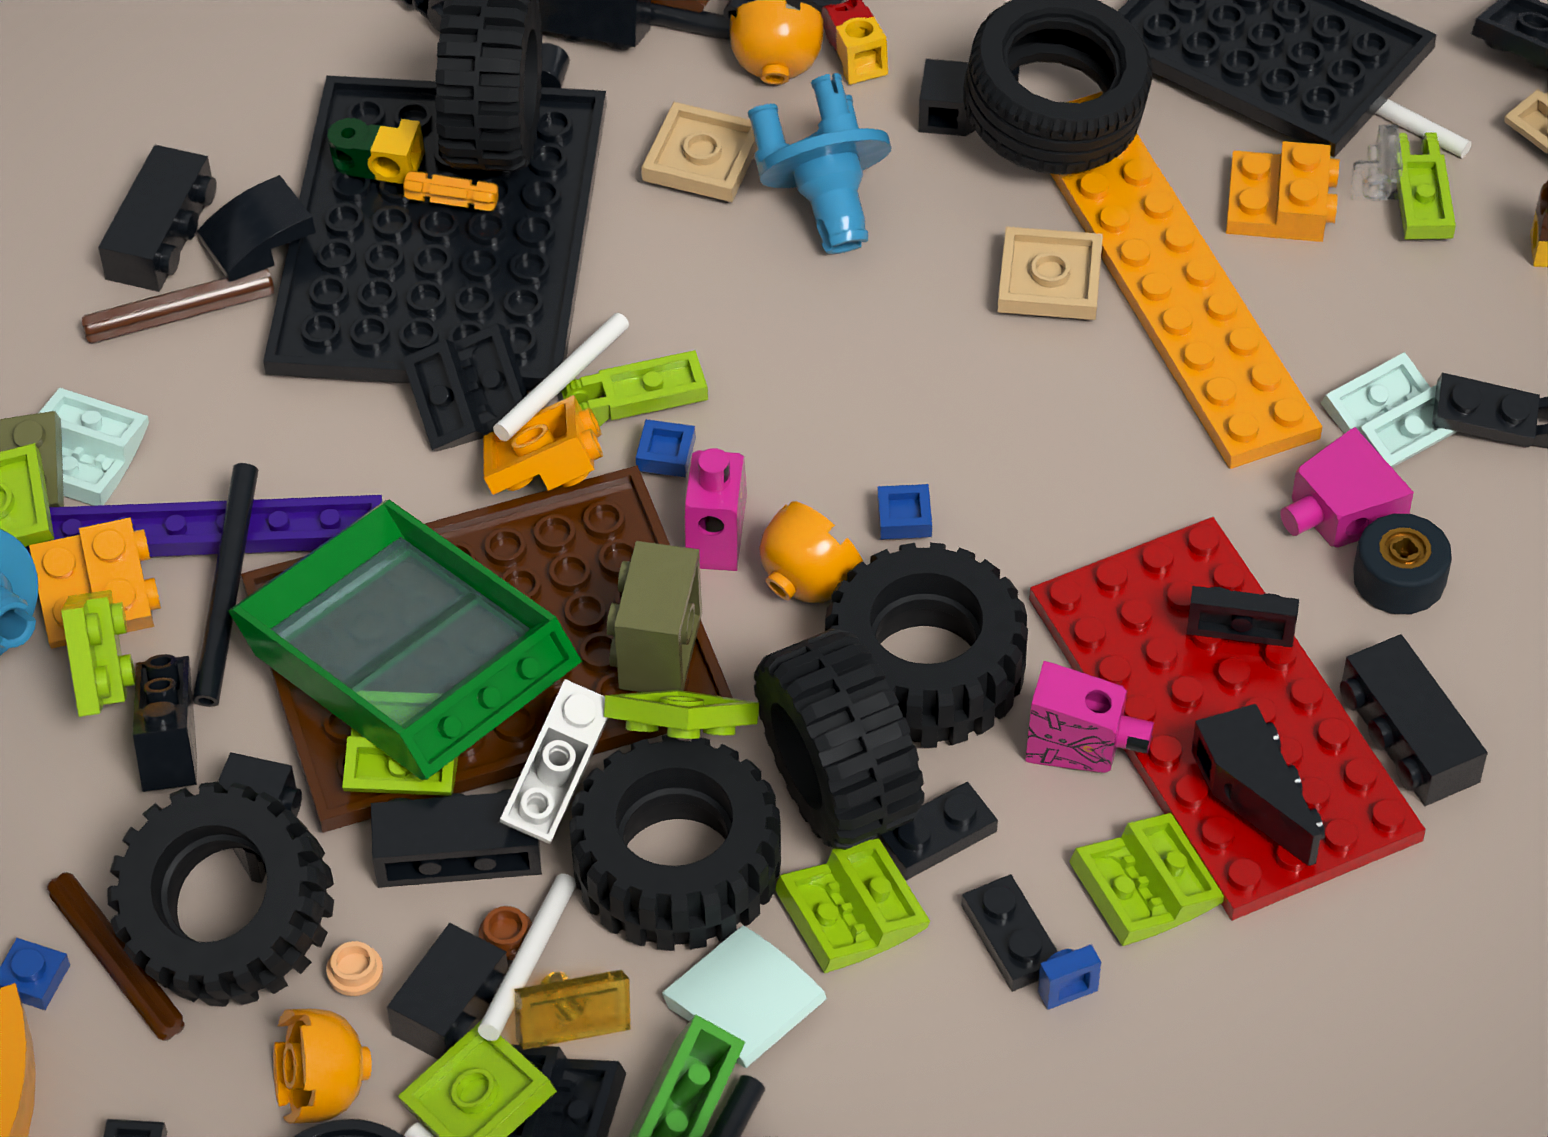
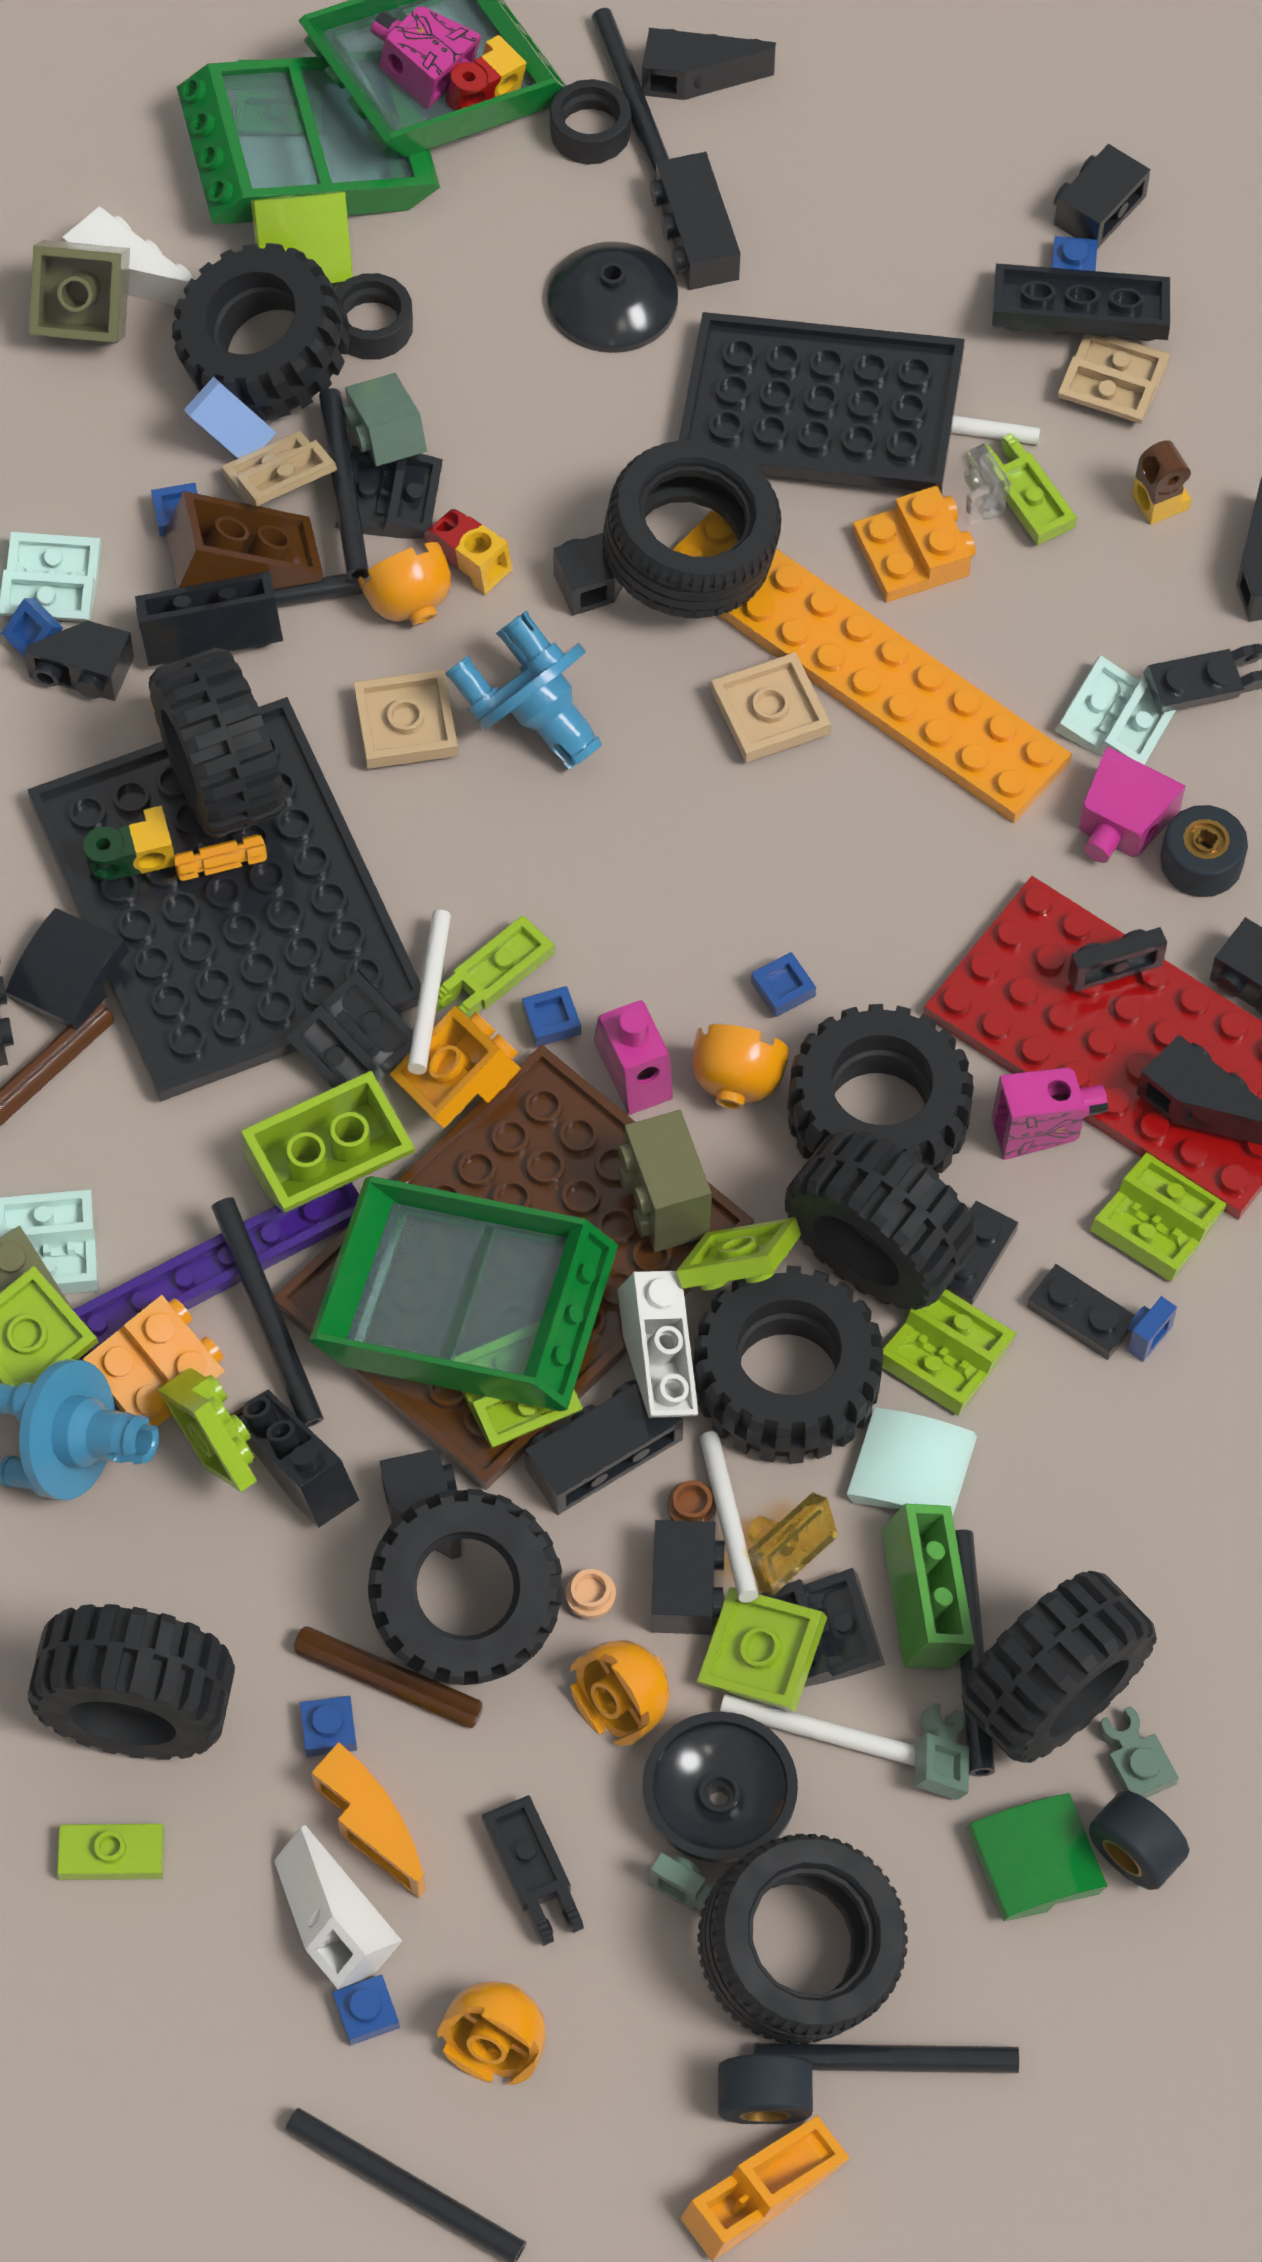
camera: 30 degrees left, 10 degrees up
(375, 456) = (325, 1142): none -> lime slope

